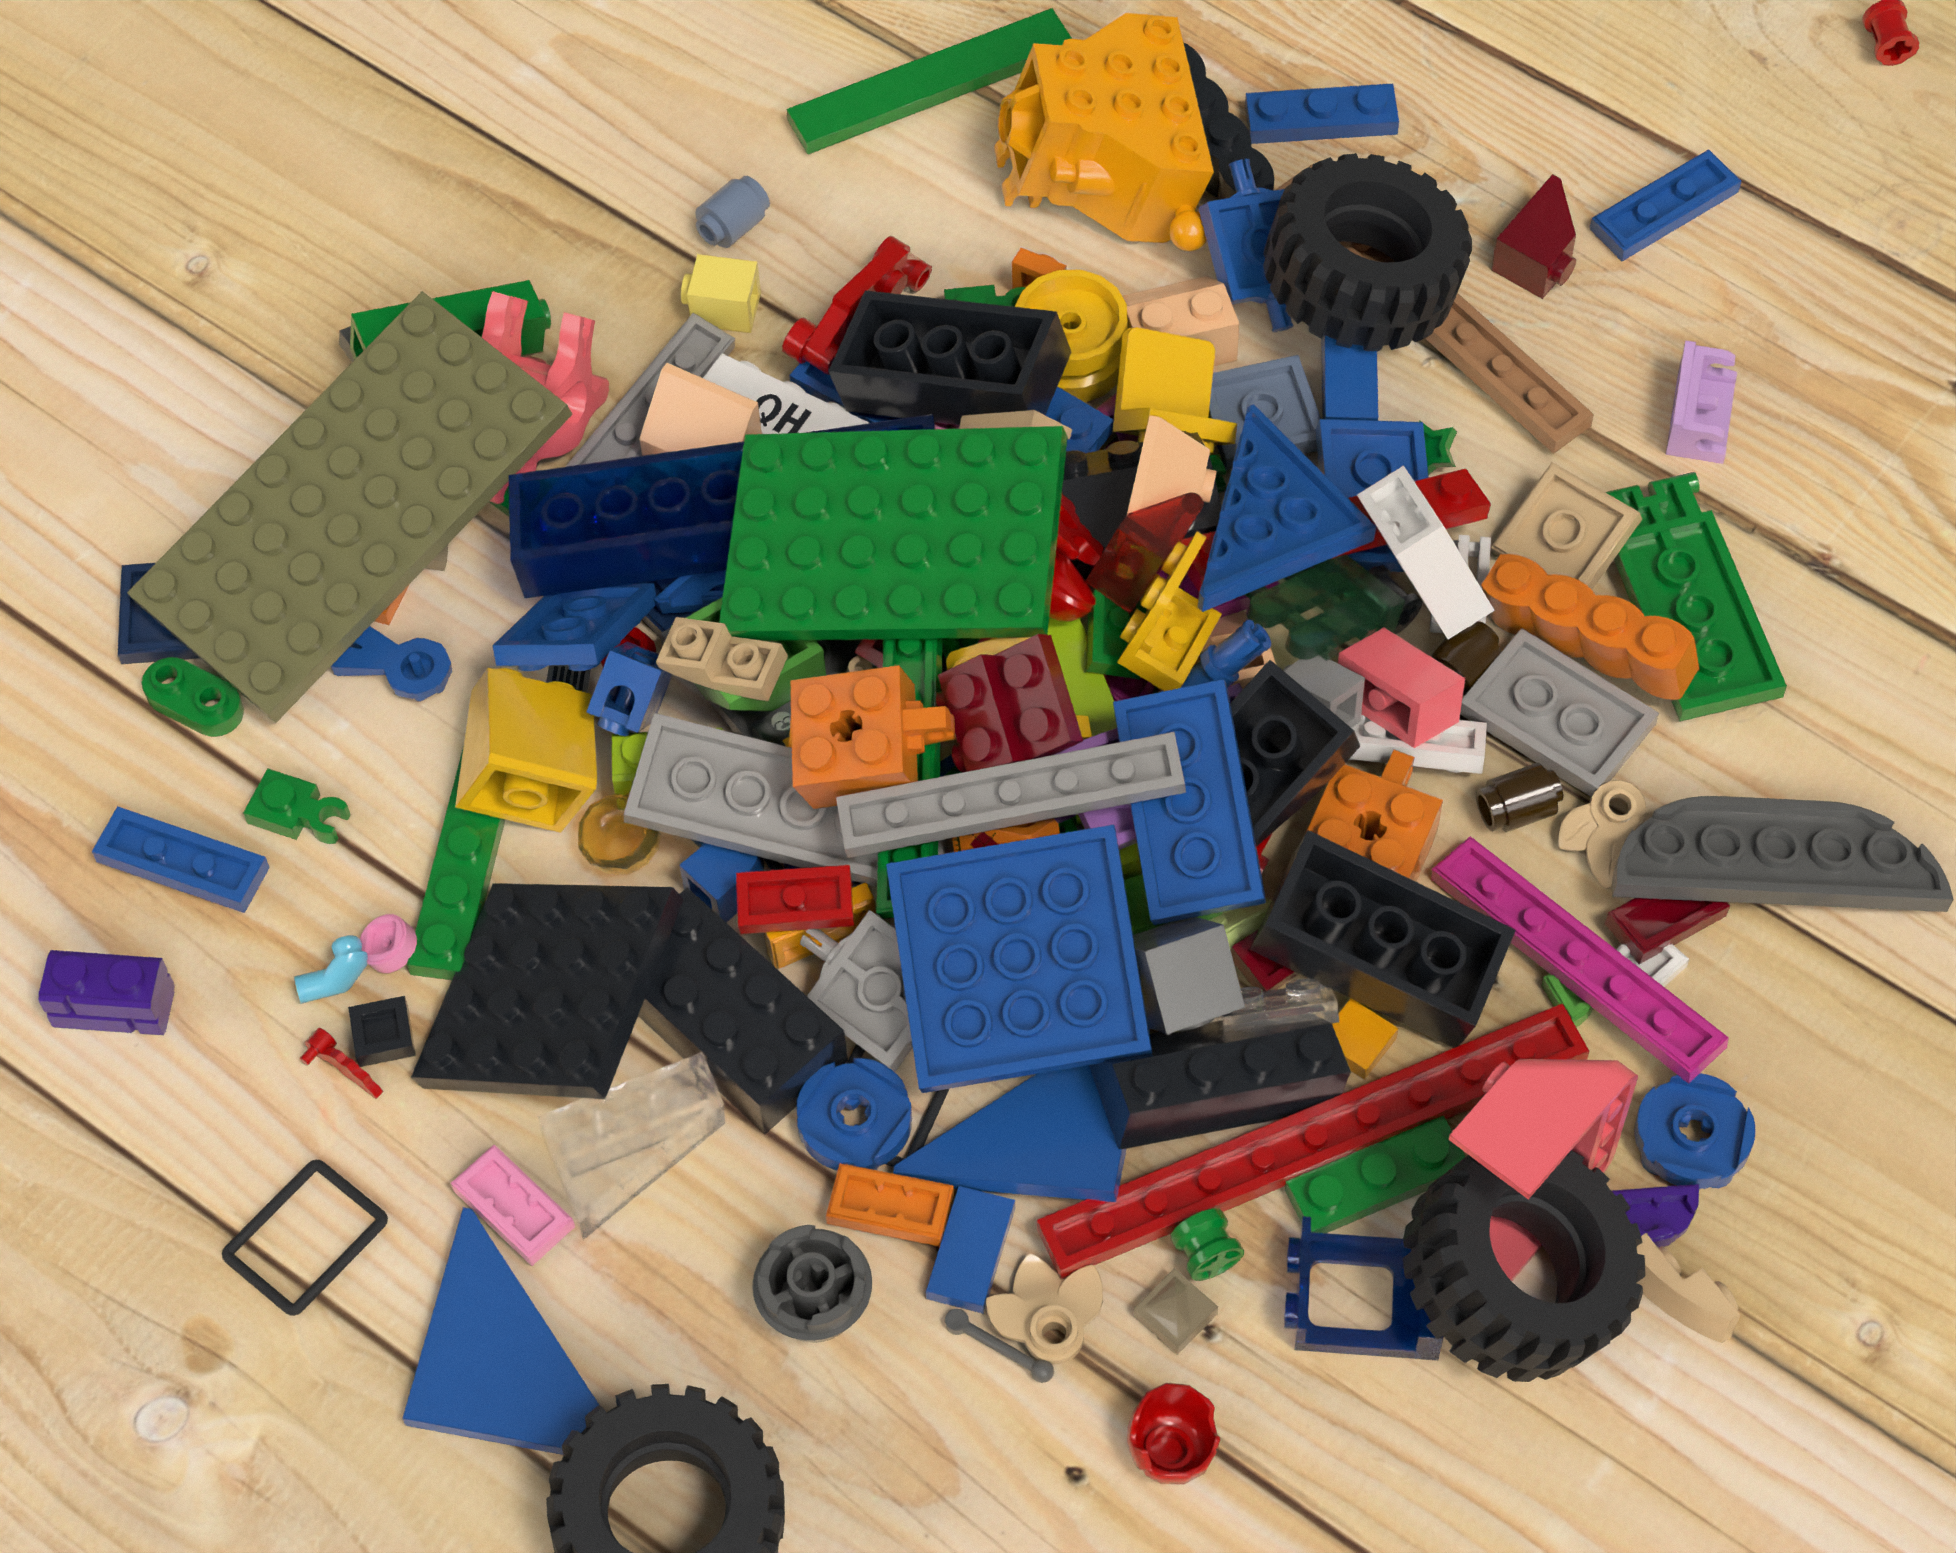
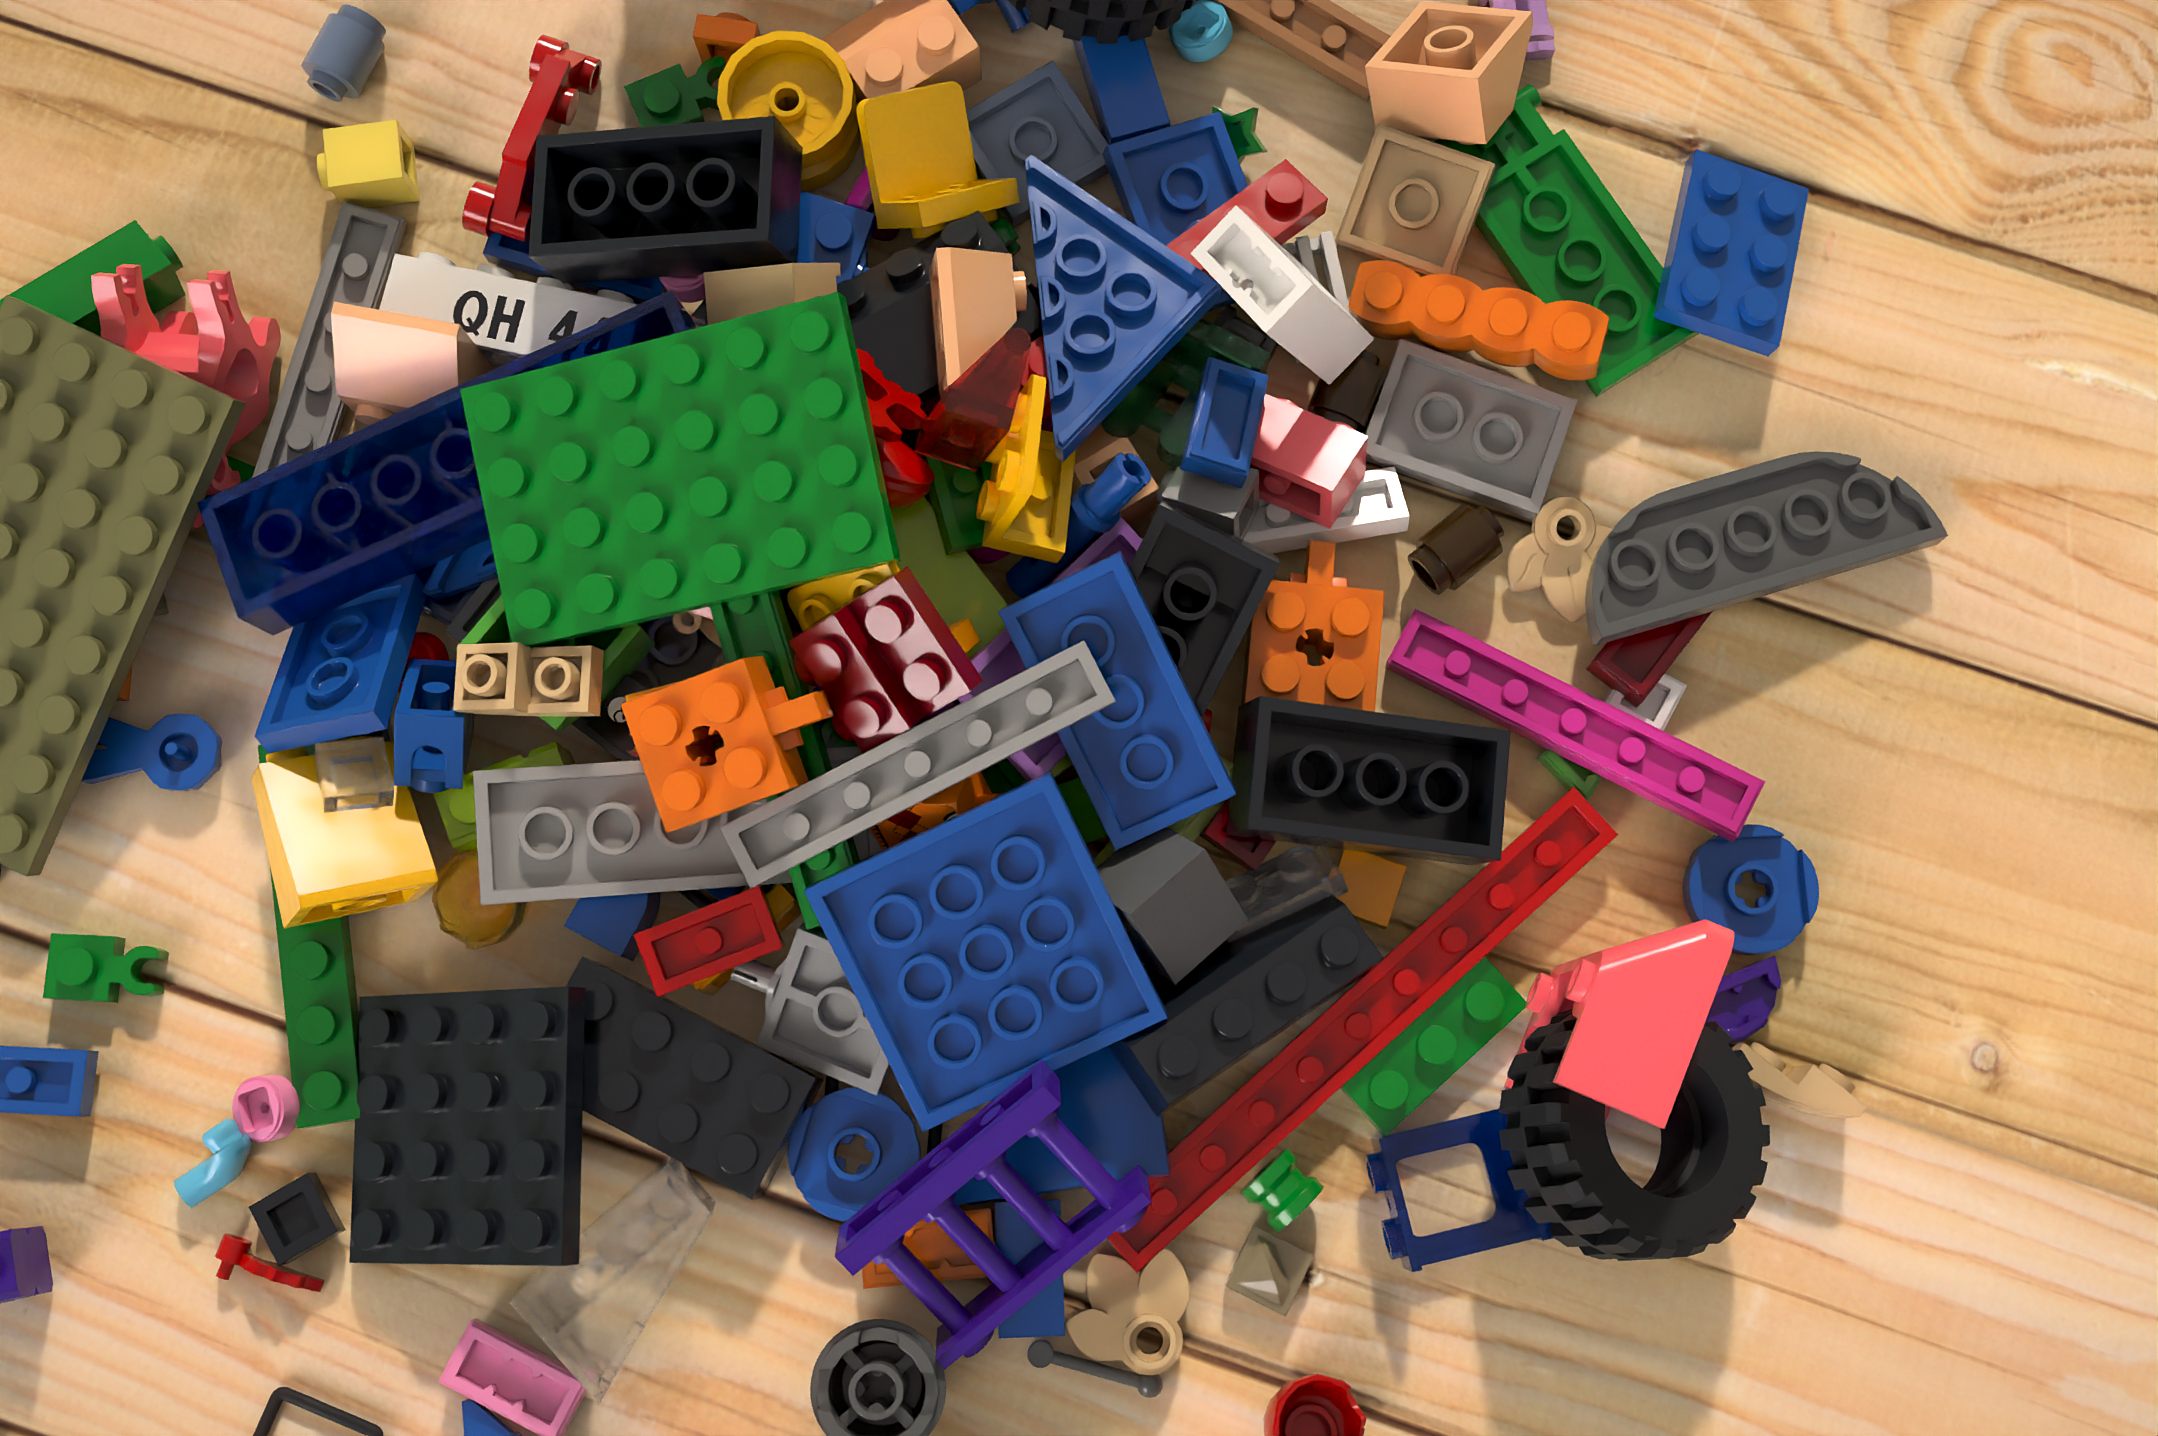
camera: 20 degrees left, 20 degrees up
(557, 697) = (353, 774): none -> clear tile
(908, 1135) = (980, 1152): none -> dark purple fence
(1347, 634) = (1224, 422): none -> blue tile
(1429, 366) = (1202, 31): none -> medium azure tile
(1624, 440) = (1450, 71): none -> light nougat slope
(1828, 638) = (1731, 253): none -> blue plate

